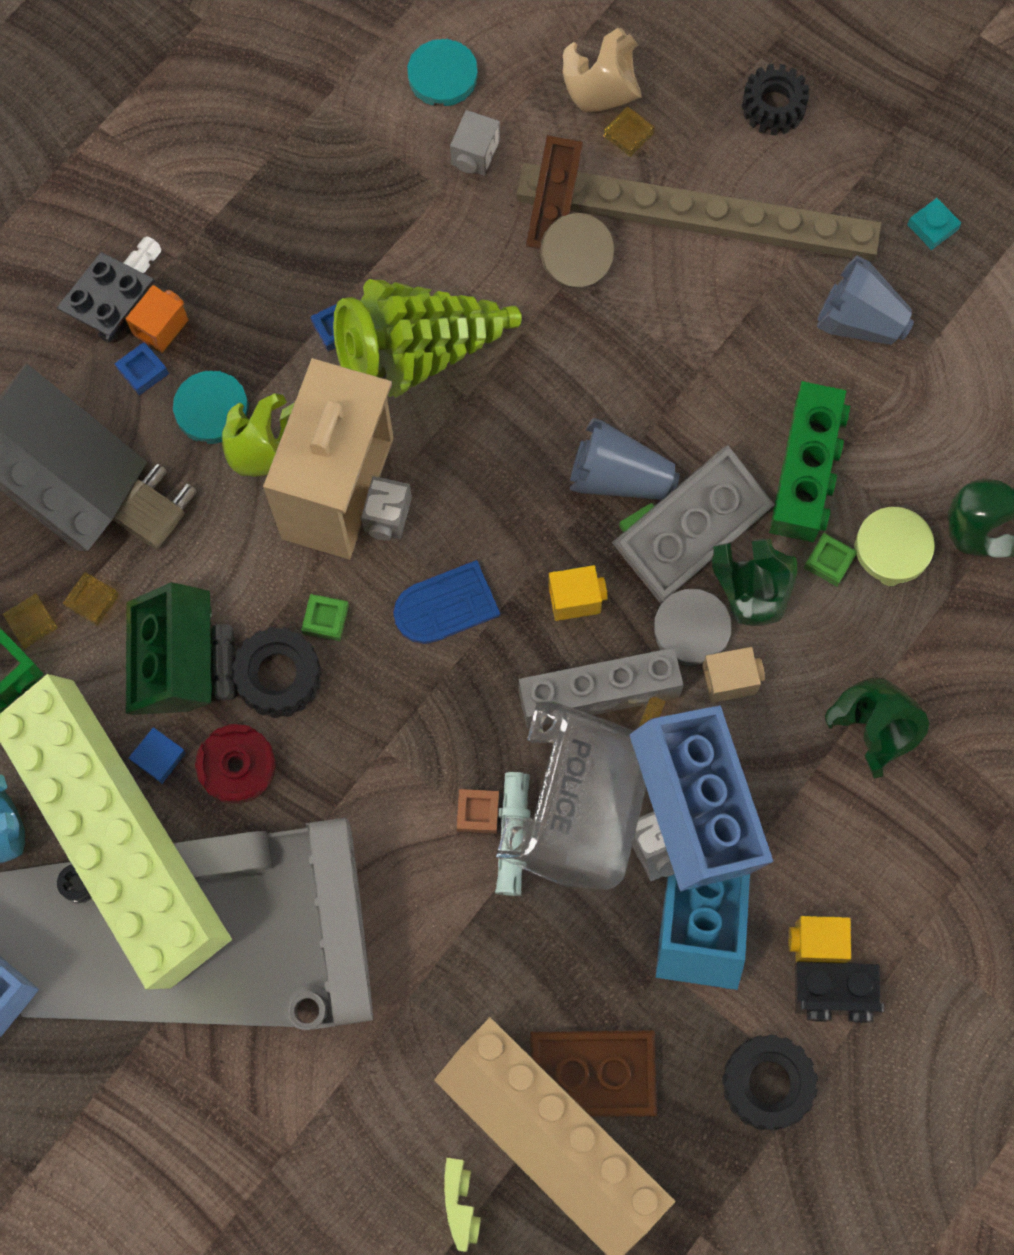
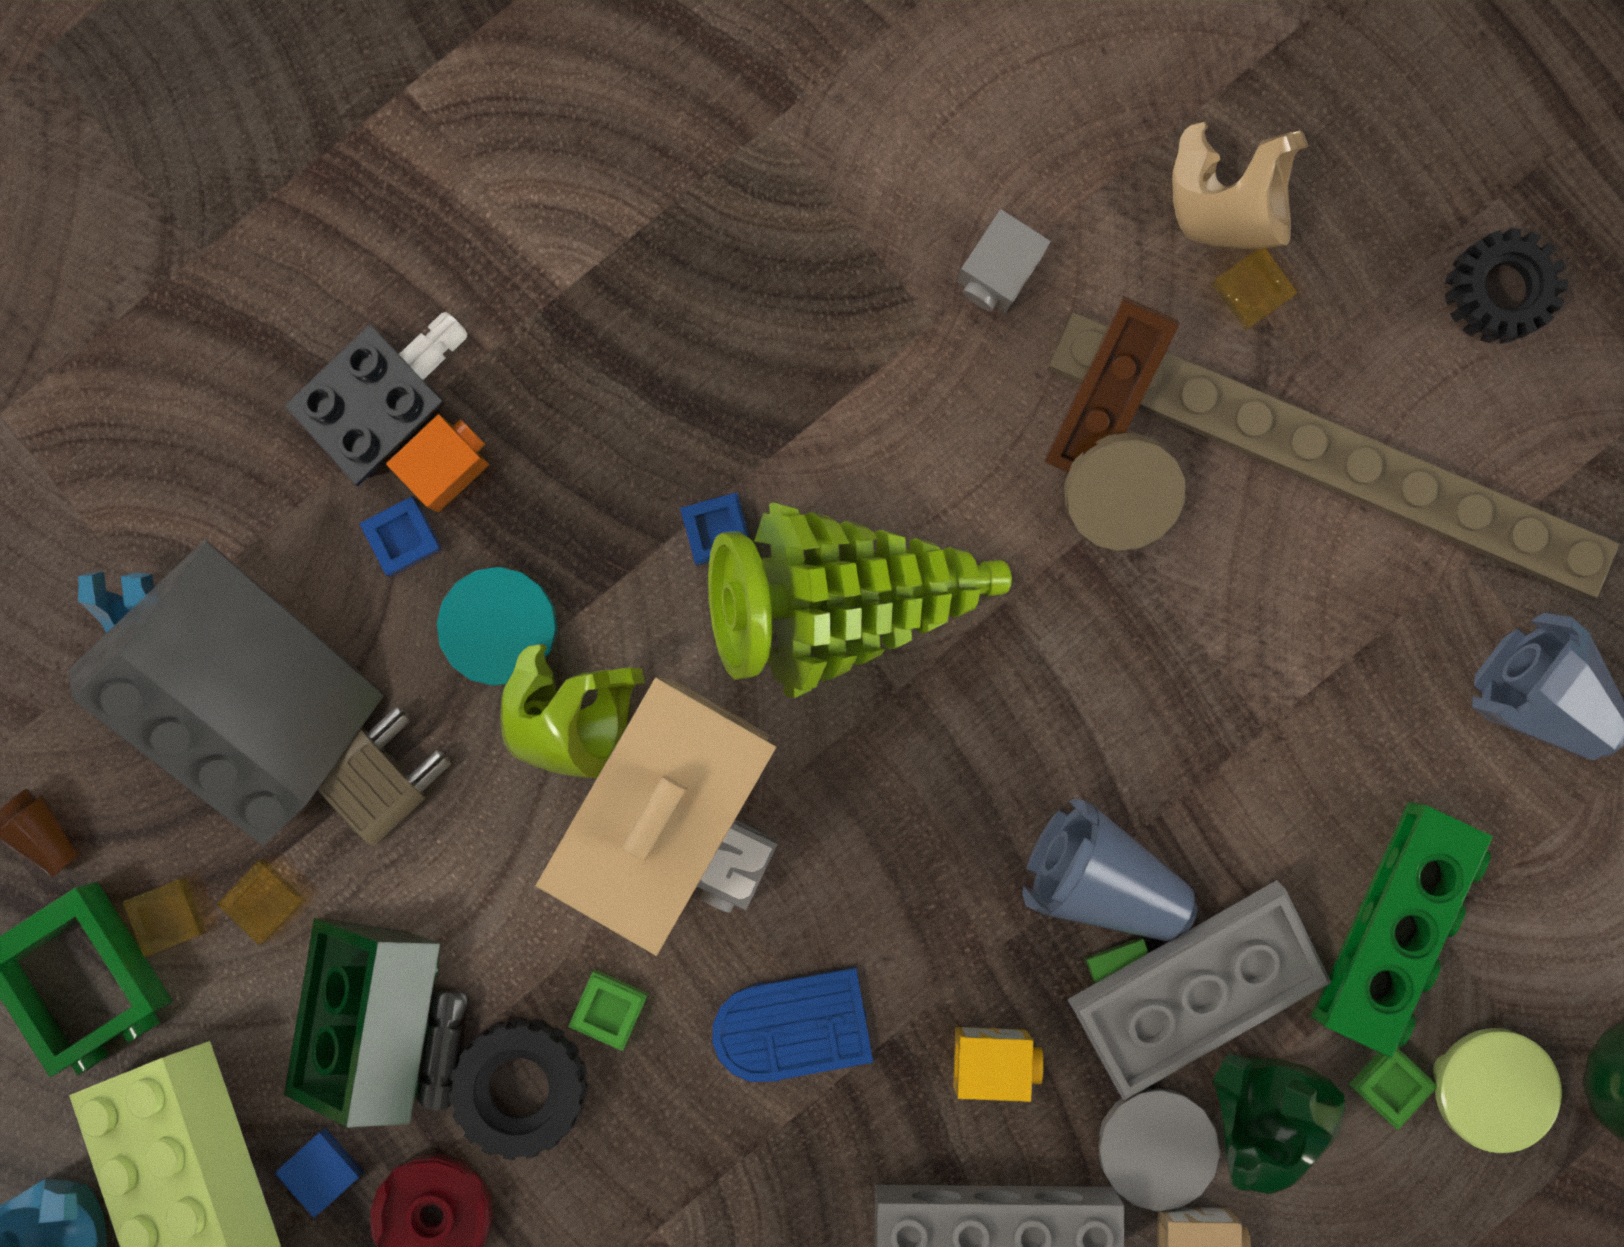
camera: 10 degrees right, 15 degrees up
(442, 72) = (977, 114): teal tile -> none

